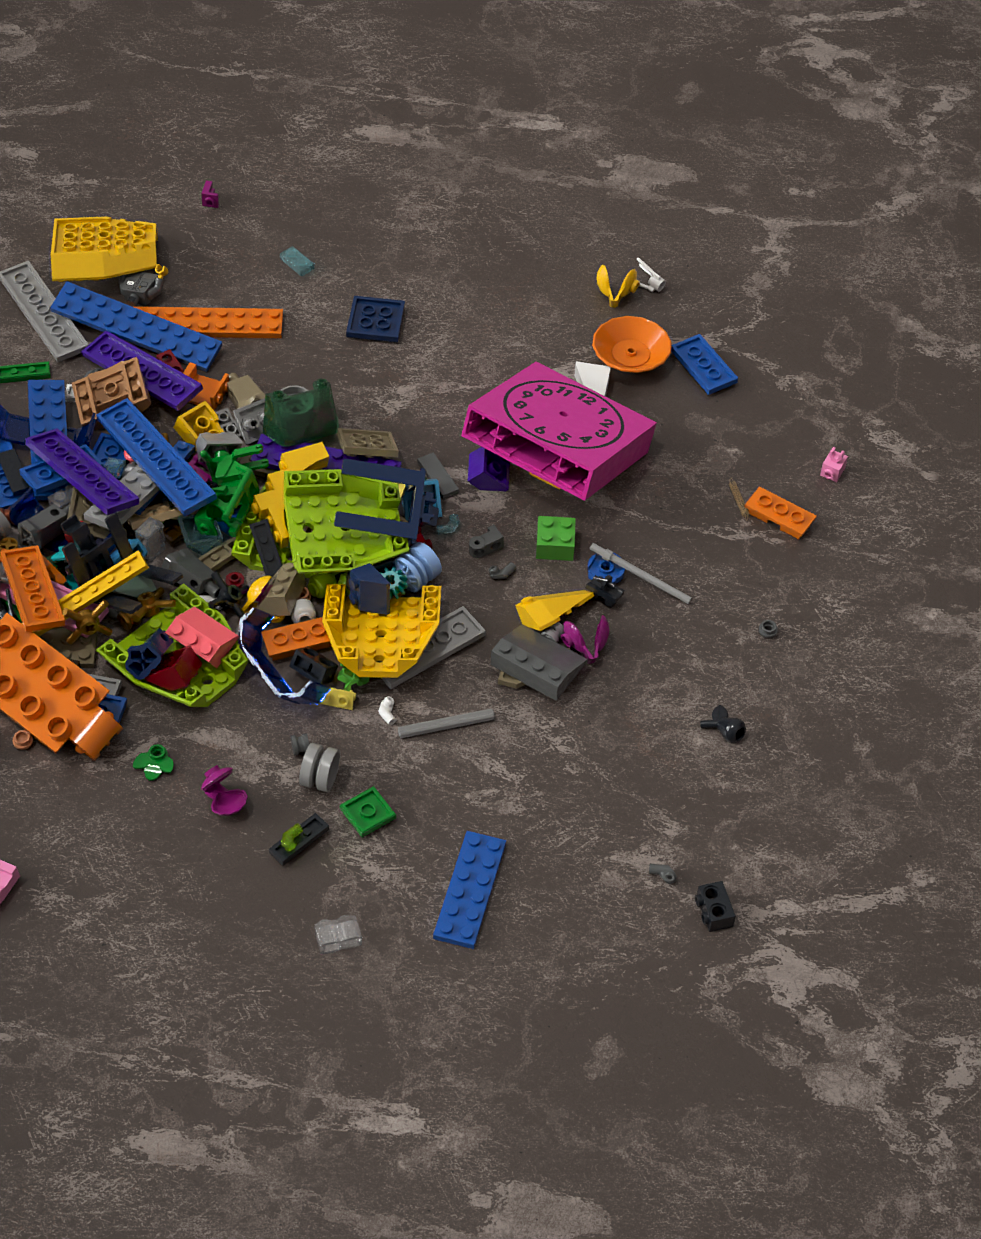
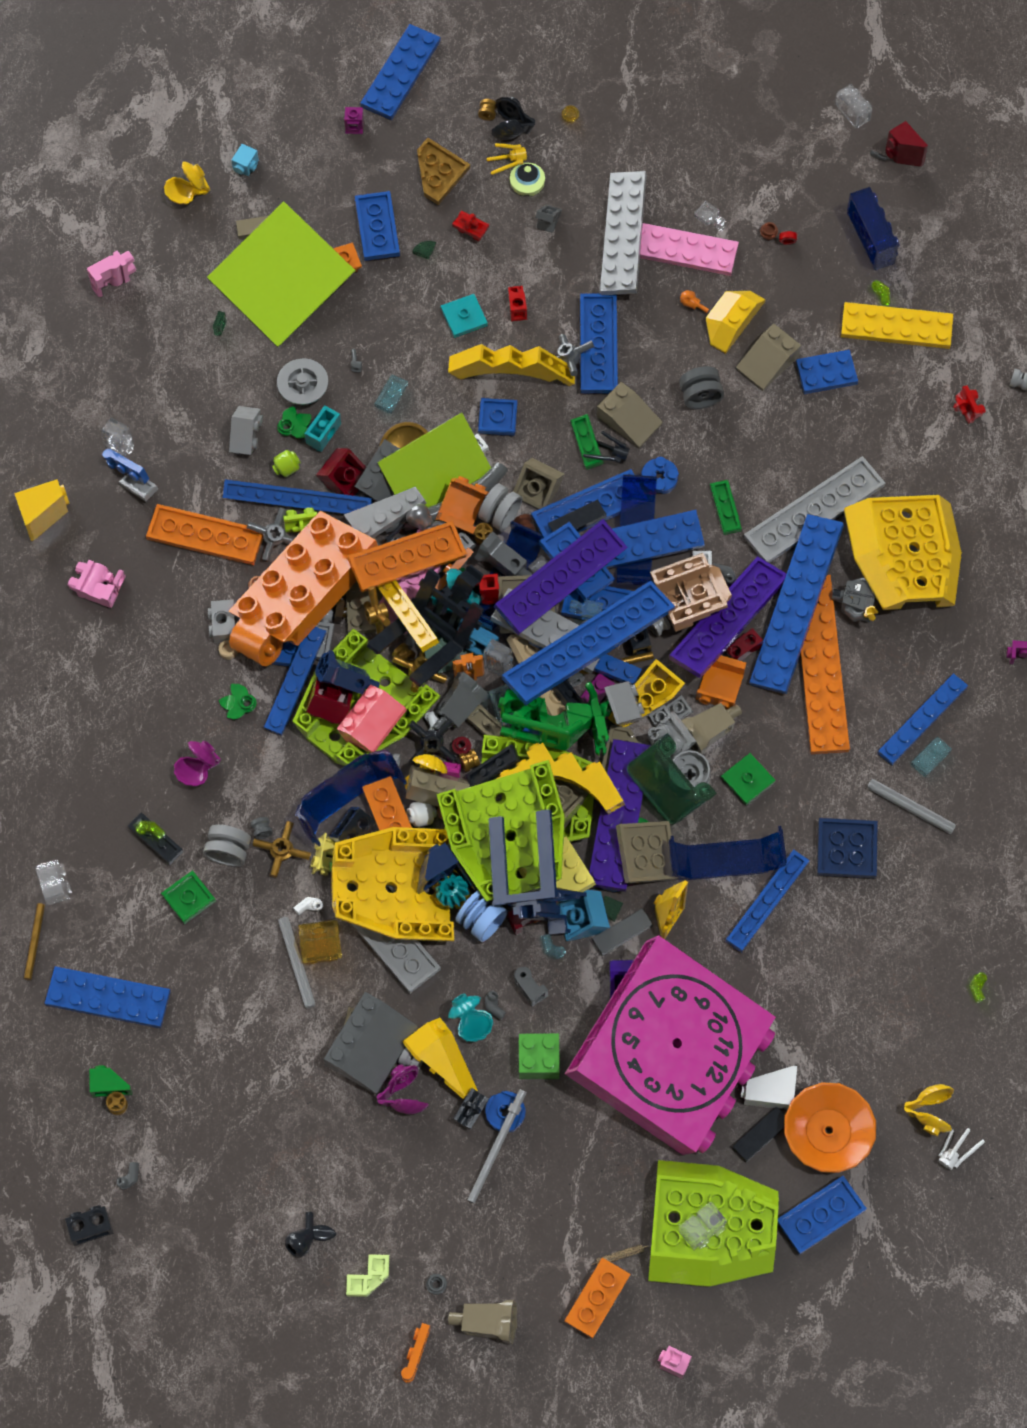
camera: 90 degrees right, 15 degrees up
(51, 763) = (218, 612): none -> light grey brick
(91, 770) = (226, 651): none -> tan tile
(147, 710) = (294, 681): none -> blue plate
(154, 557) = (470, 665): none -> orange piece
(251, 571) = (469, 760): none -> pearl gold wheel
(261, 263) = (922, 719): none -> blue plate
(299, 374) = (748, 779): none -> green plate
(326, 726) = (285, 854): none -> pearl gold bar
(346, 272) = (911, 806): none -> light grey axle
(374, 386) = (728, 858): none -> clear blue windscreen
(401, 956) = (34, 941): none -> pearl gold bar
(419, 374) = (767, 901): none -> blue plate
(423, 427) = (670, 906): none -> yellow wedge
(427, 699) = (320, 941): none -> clear yellow slope
(508, 254) = (976, 986): none -> clear neon green arm
(515, 582) = (474, 1023): none -> teal animal
(564, 888) = (105, 1081): none -> green slope
(586, 874) = (114, 1100): none -> pearl gold wheel
(631, 397) = (760, 1135): none -> black tile
(689, 431) = (727, 1257): none -> lime wedge
(722, 423) = (700, 1228): none -> clear piece
(757, 674) = (365, 1284): none -> yellowish green tile
(803, 587) = (488, 1320): none -> dark tan piece
(834, 645) = (415, 1354): none -> orange plate

